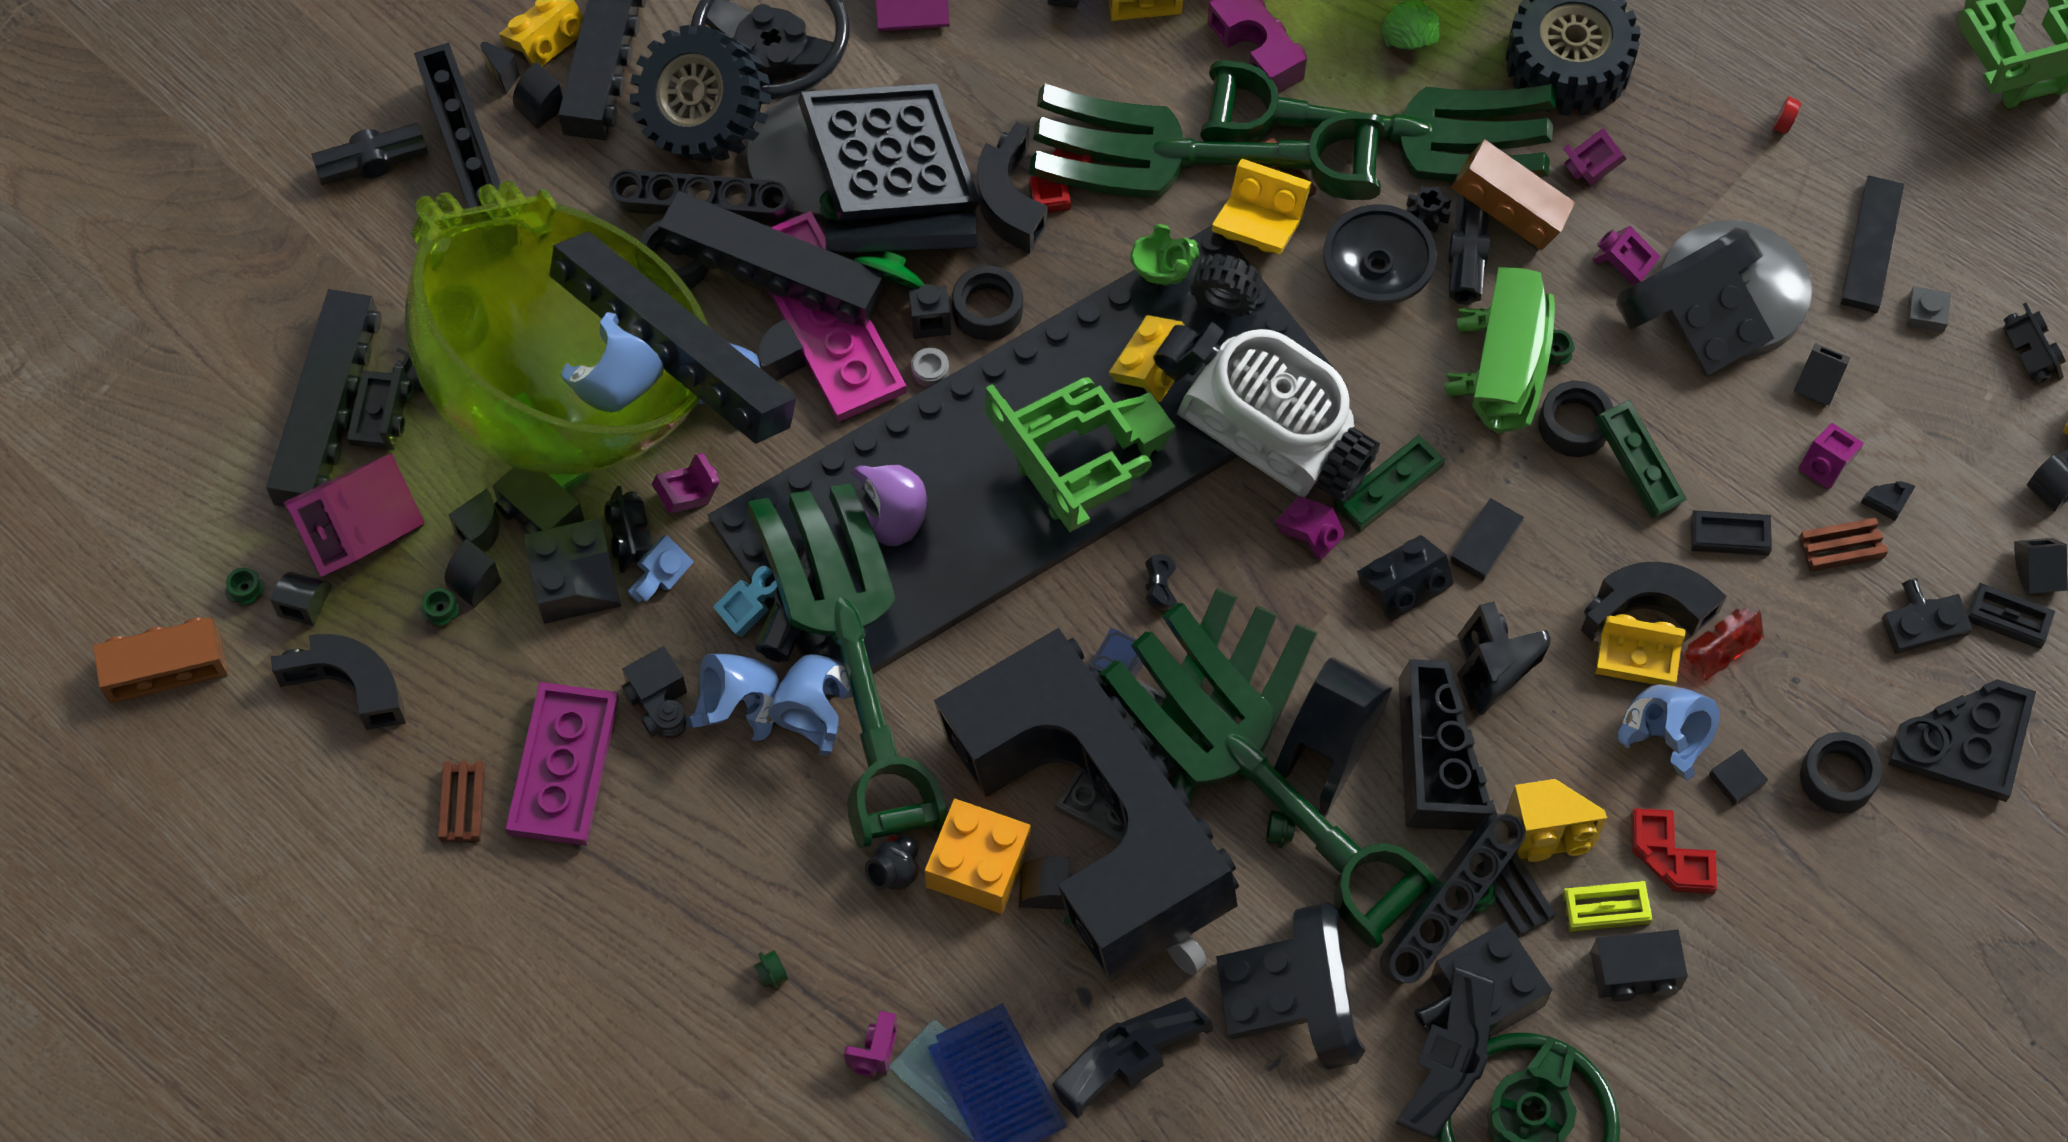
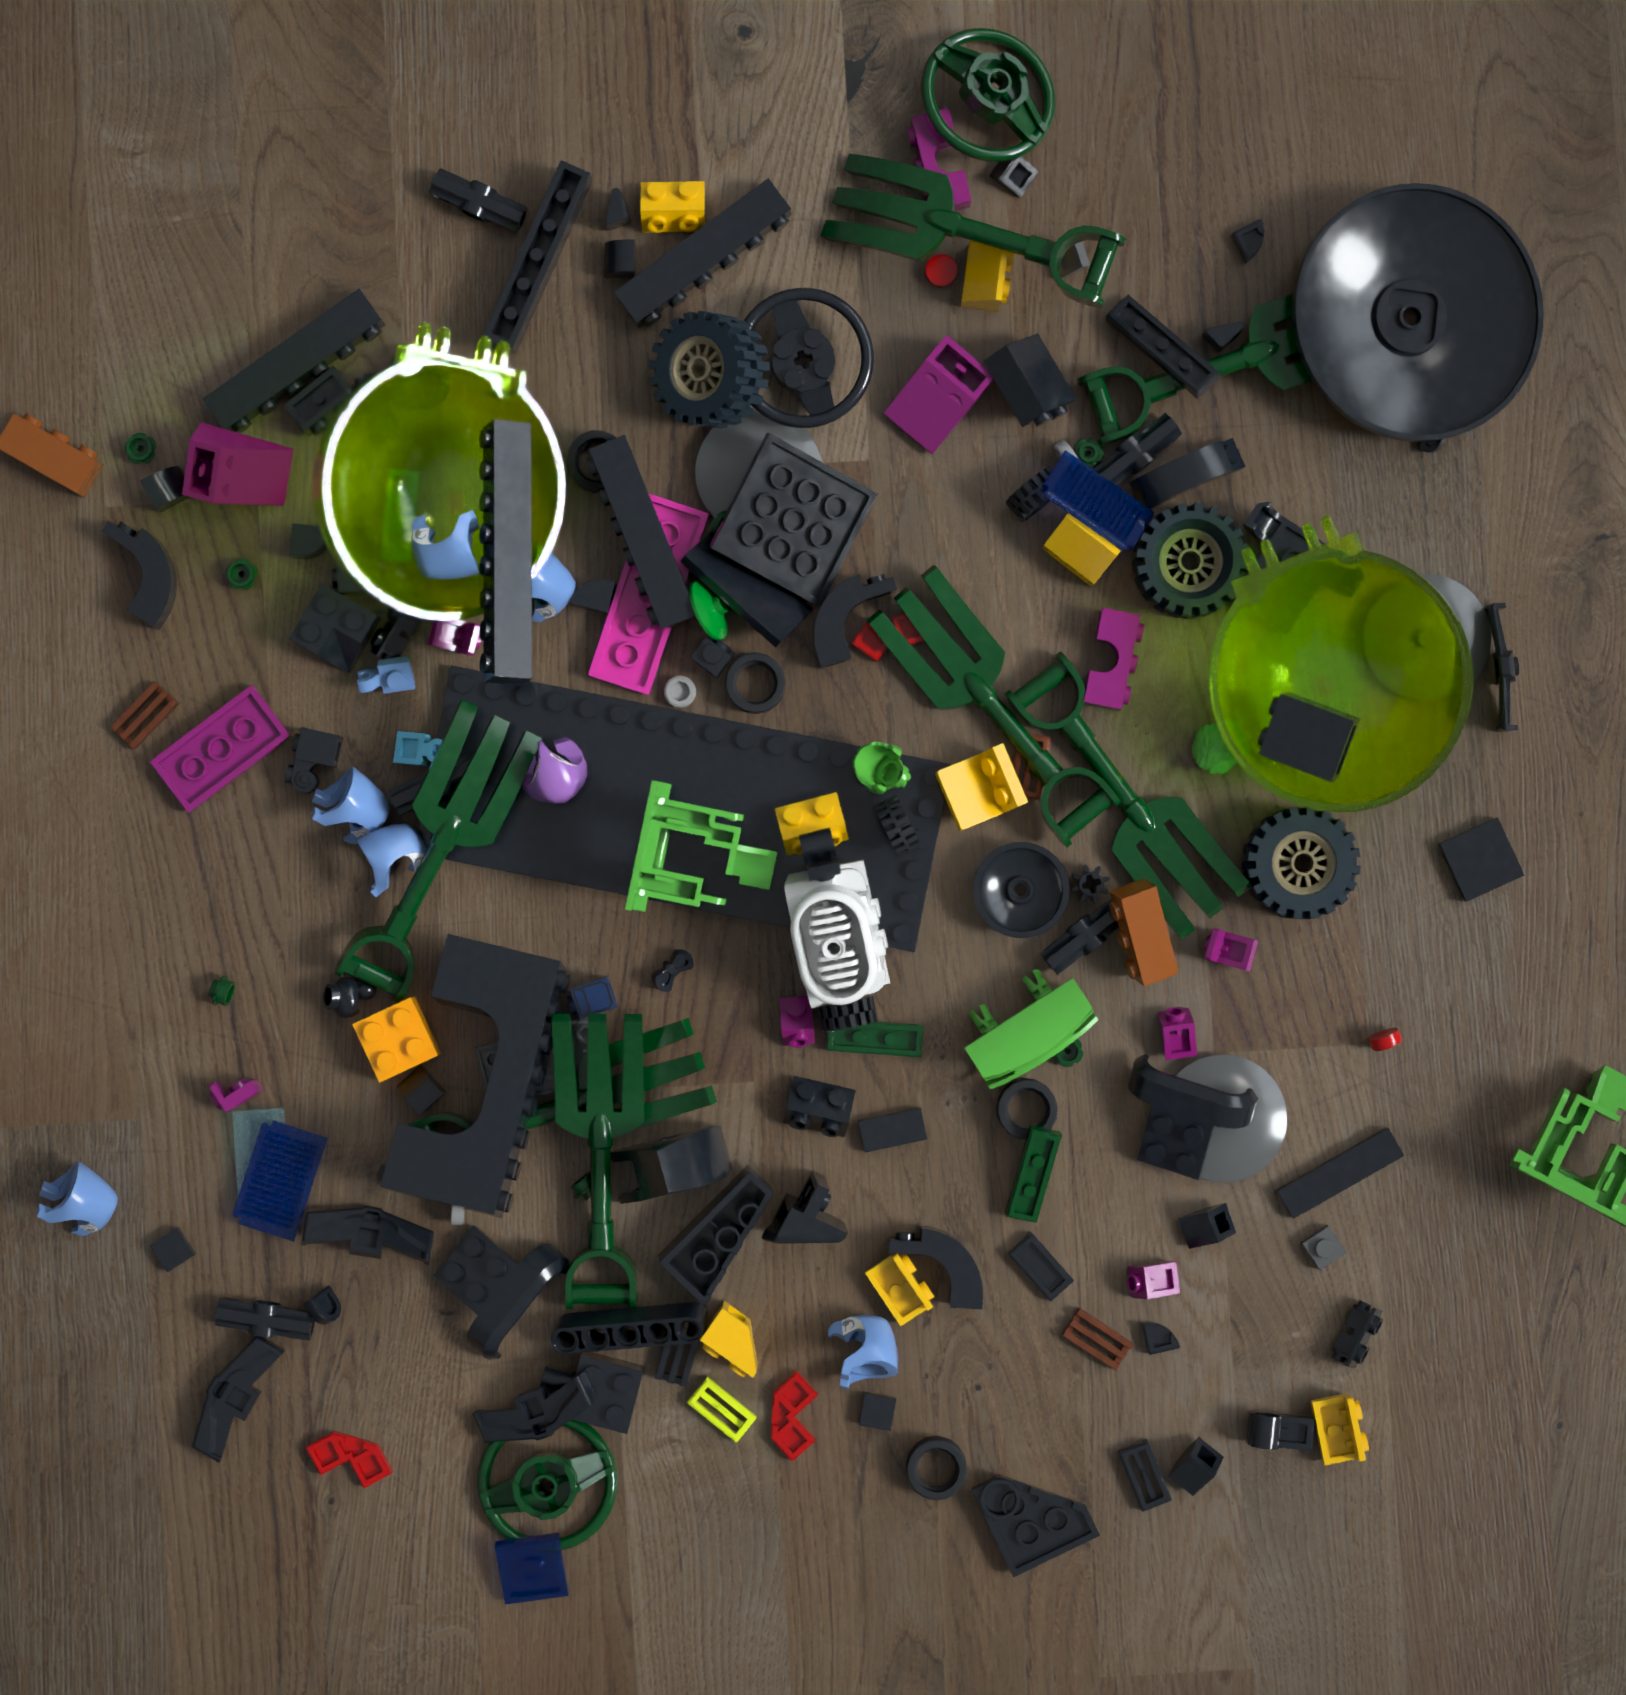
camera: 45 degrees right, 25 degrees up
(471, 574) = (277, 572): black brick -> none
(721, 190) = (636, 432): black beam -> none
(1639, 965) = (698, 1462): black brick -> none
(1738, 633) = (971, 1331): clear red hinge -> none
(1925, 620) = (1091, 1429): black plate -> none

